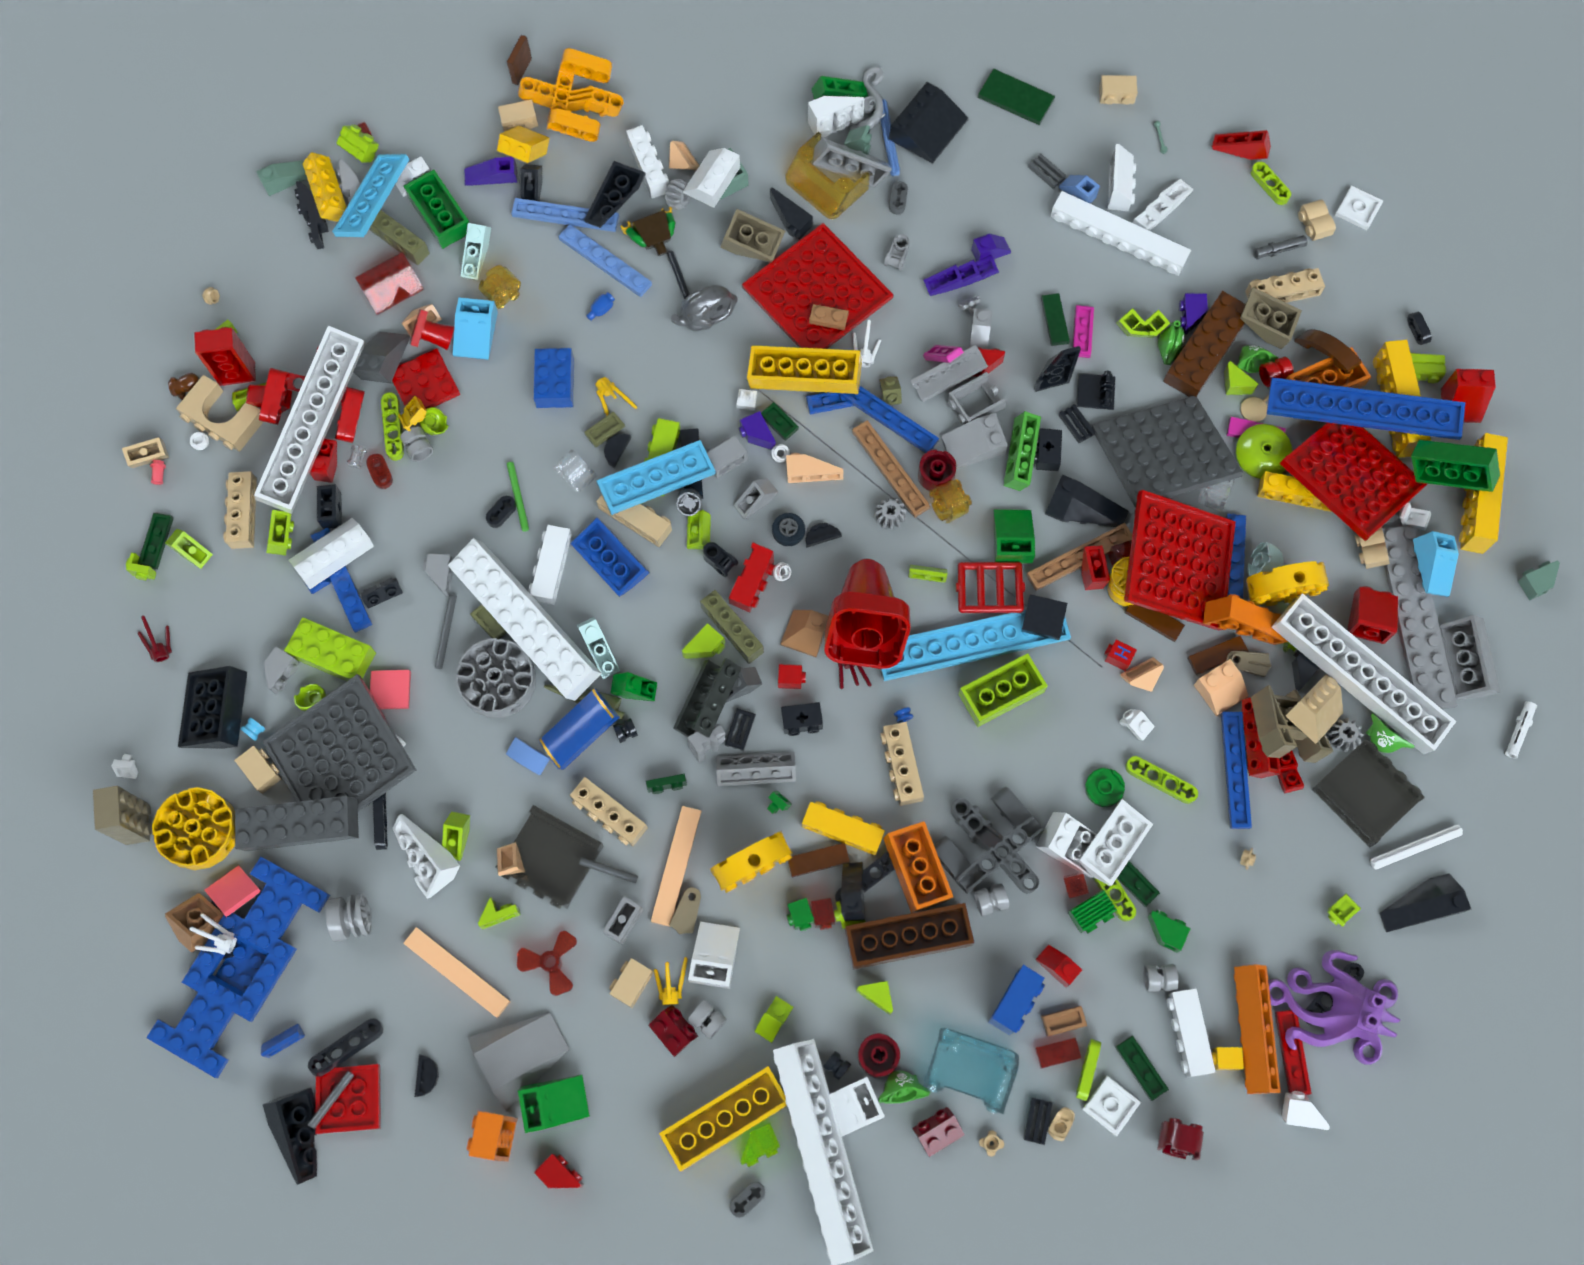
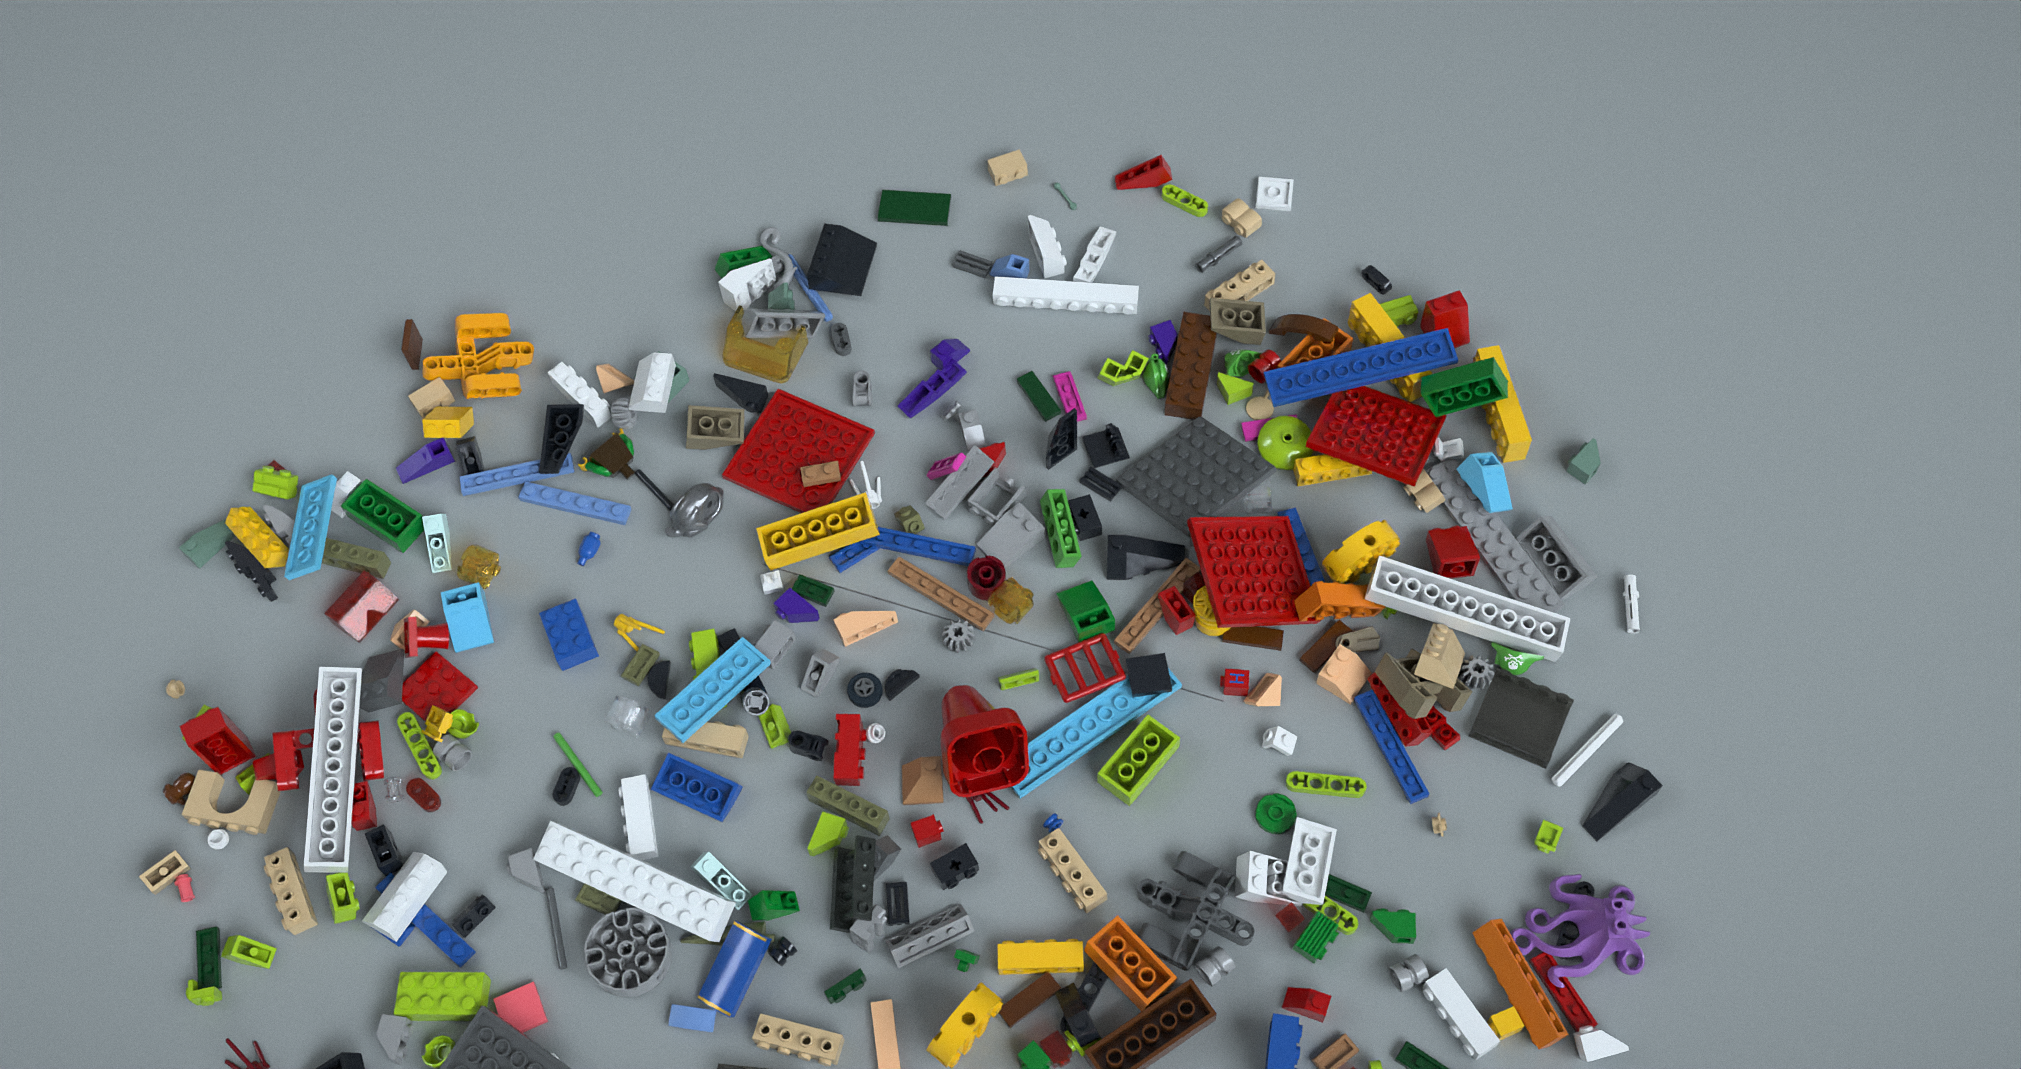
camera: 20 degrees left, 10 degrees down
(784, 449) = (826, 614): white plate -> none
(1265, 558) = (1330, 537): light aqua cylinder -> none
(1303, 669) = (1410, 628): black slope -> none

